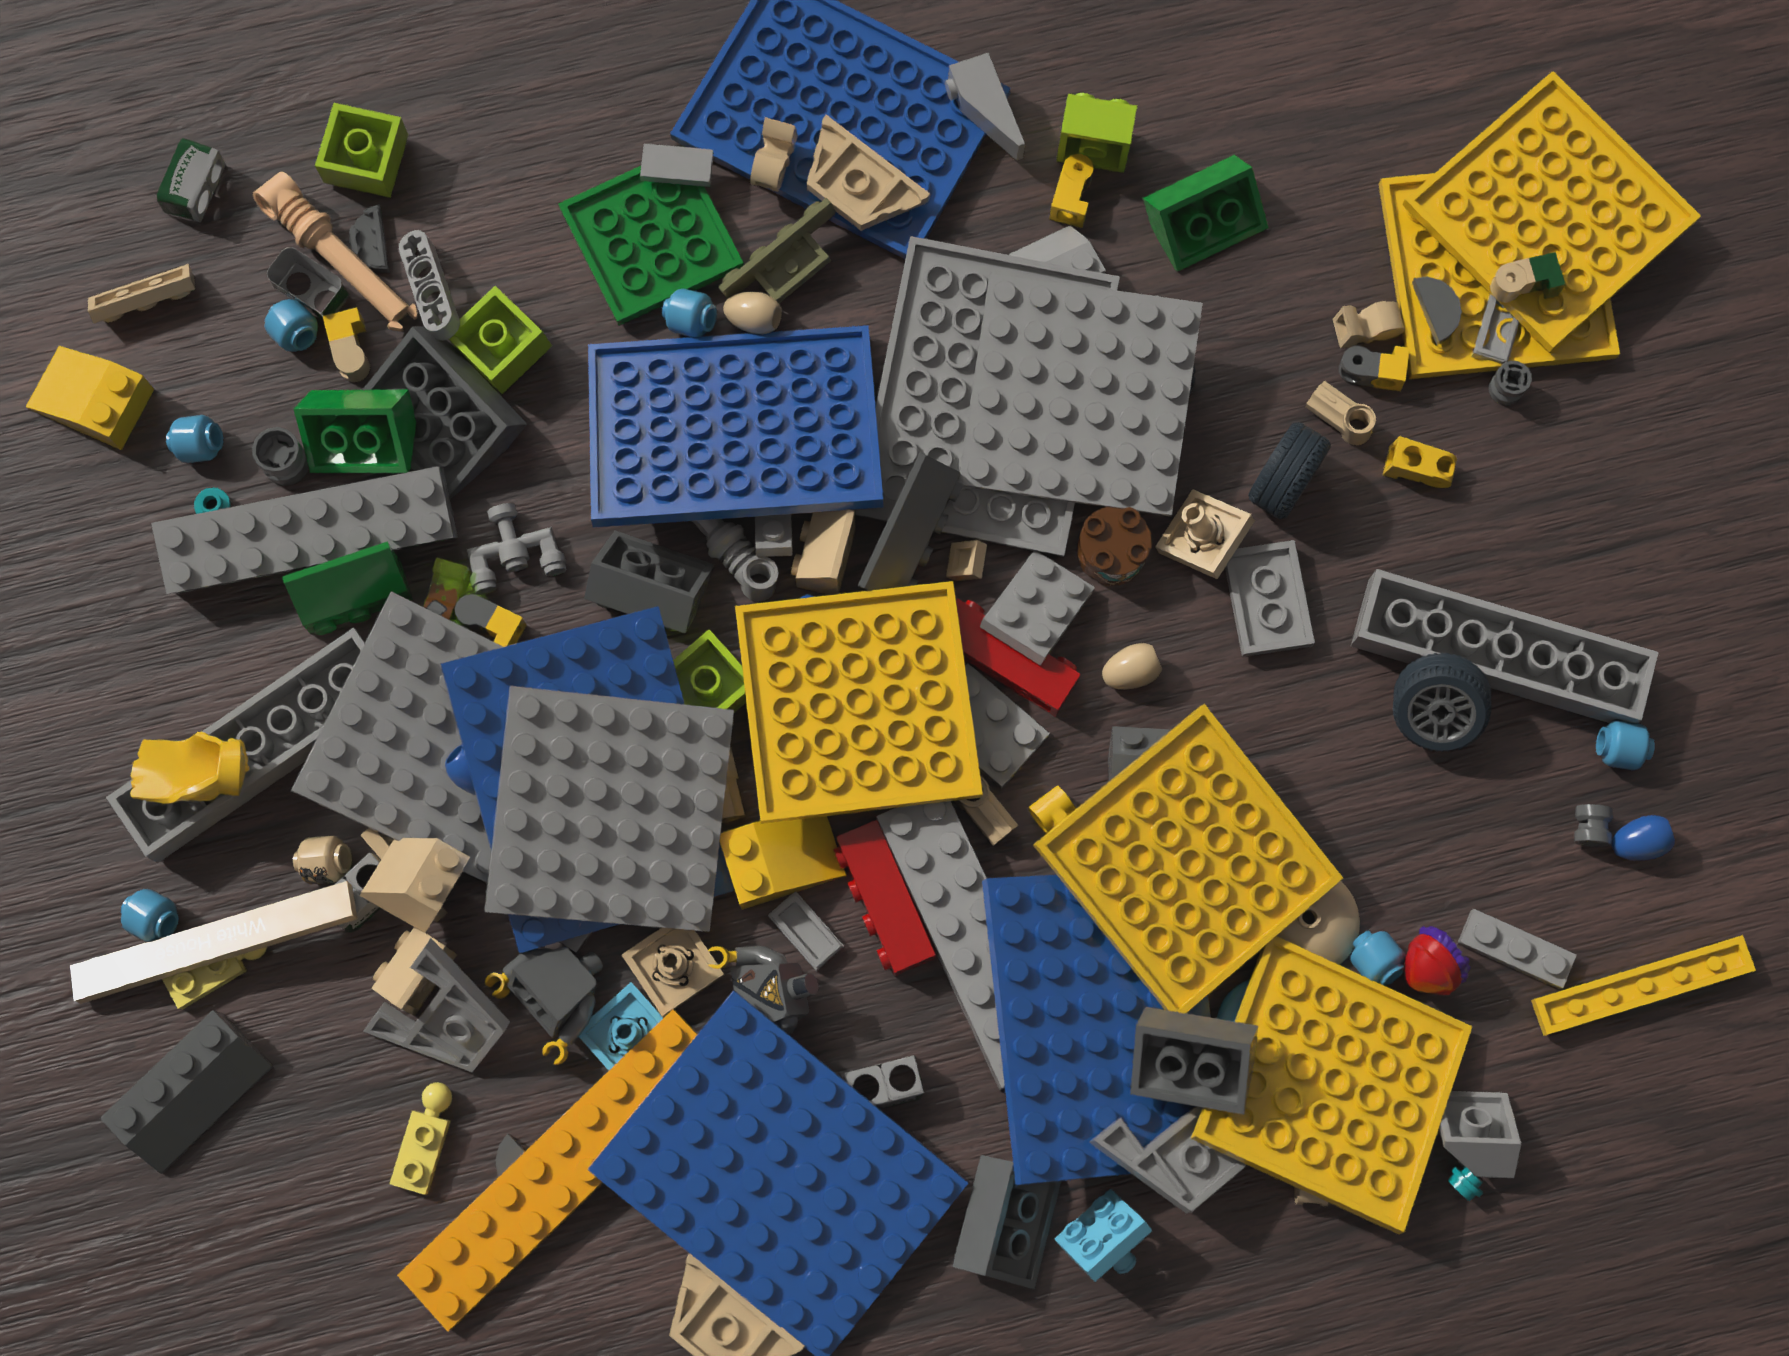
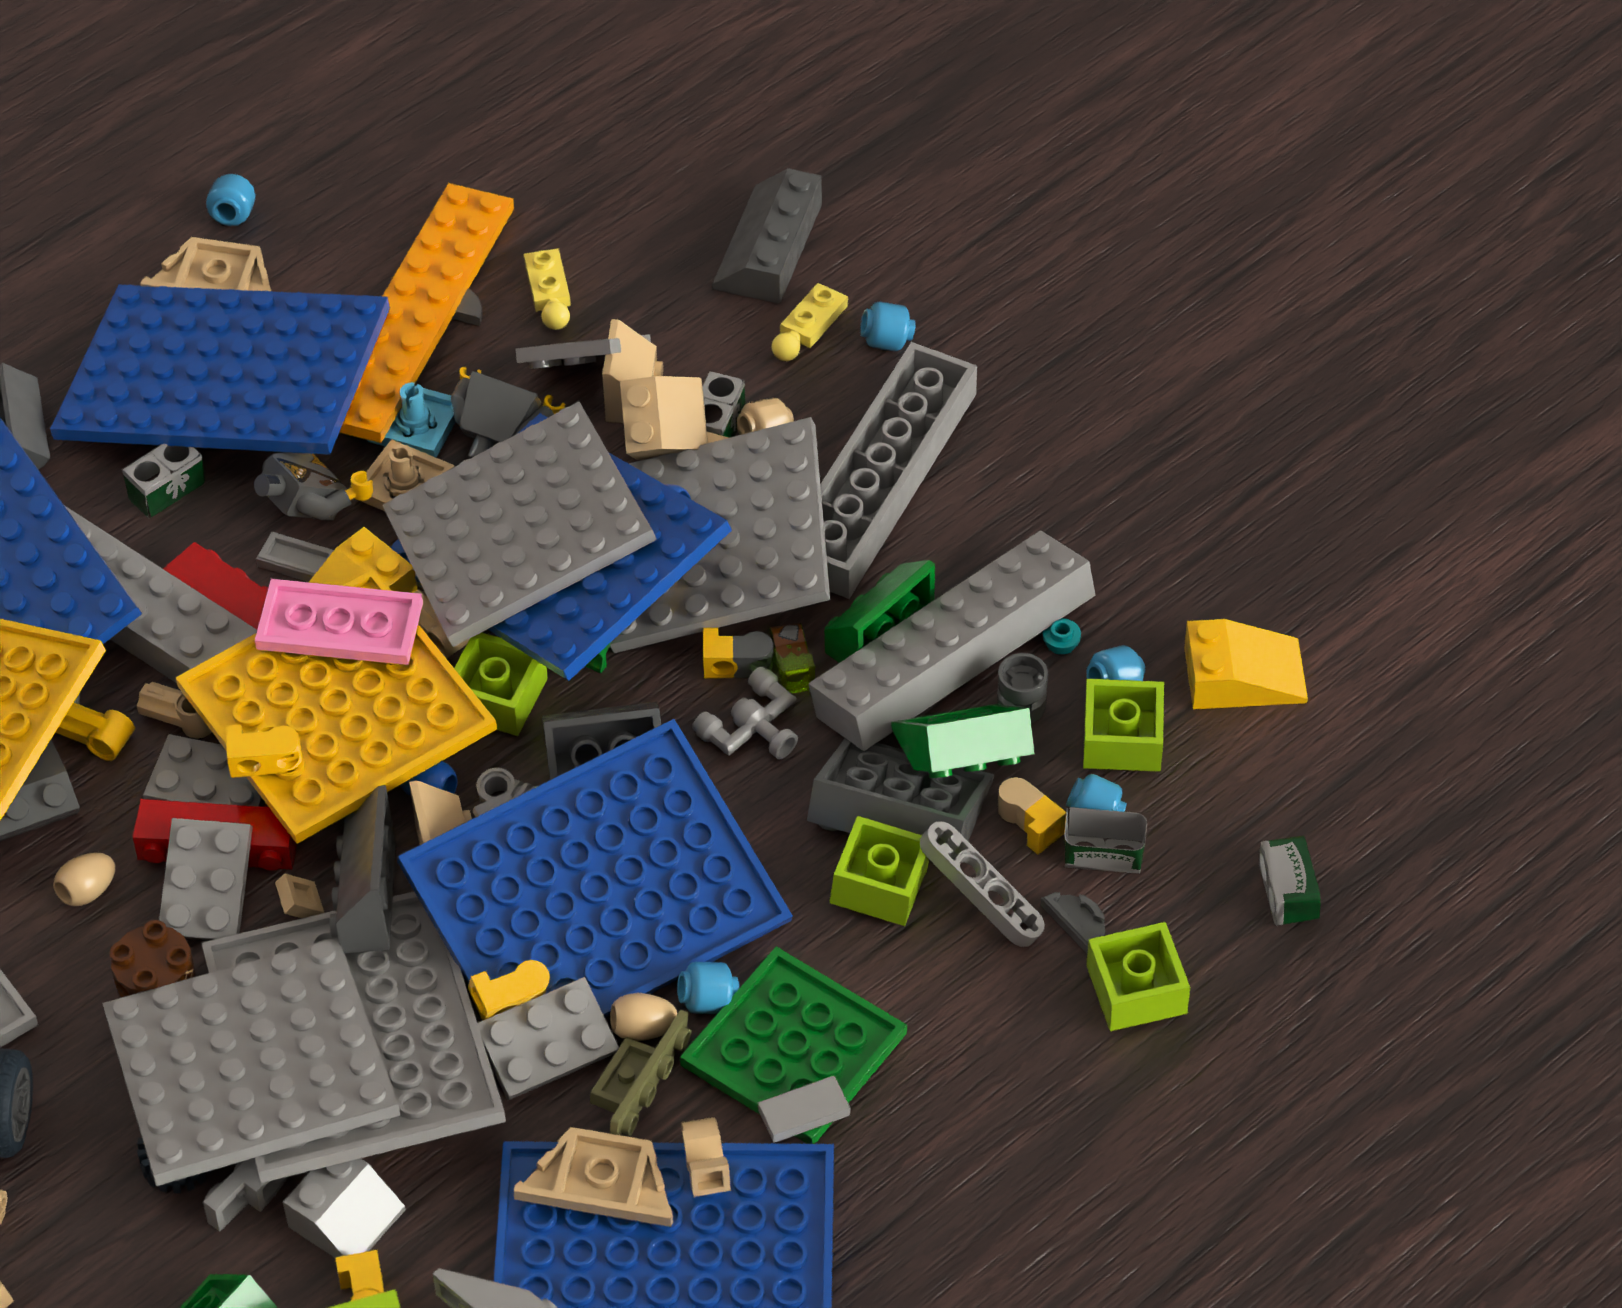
camera: 155 degrees right, 25 degrees down
(141, 294) = (1260, 766): tan plate -> none
(188, 769) = (912, 396): yellow hair -> none
(213, 942) = (811, 323): tile -> none
(224, 376) = (1123, 725): none -> lime brick
(284, 202) = (1185, 898): light nougat piece -> none
(820, 764) = (339, 621): none -> bright pink plate
(836, 325) = (546, 1038): none -> light grey plate
(847, 359) = (509, 990): none -> yellow leg
(946, 661) = (262, 751): none -> yellow leg
(1196, 527) = (62, 1009): tan plate -> none

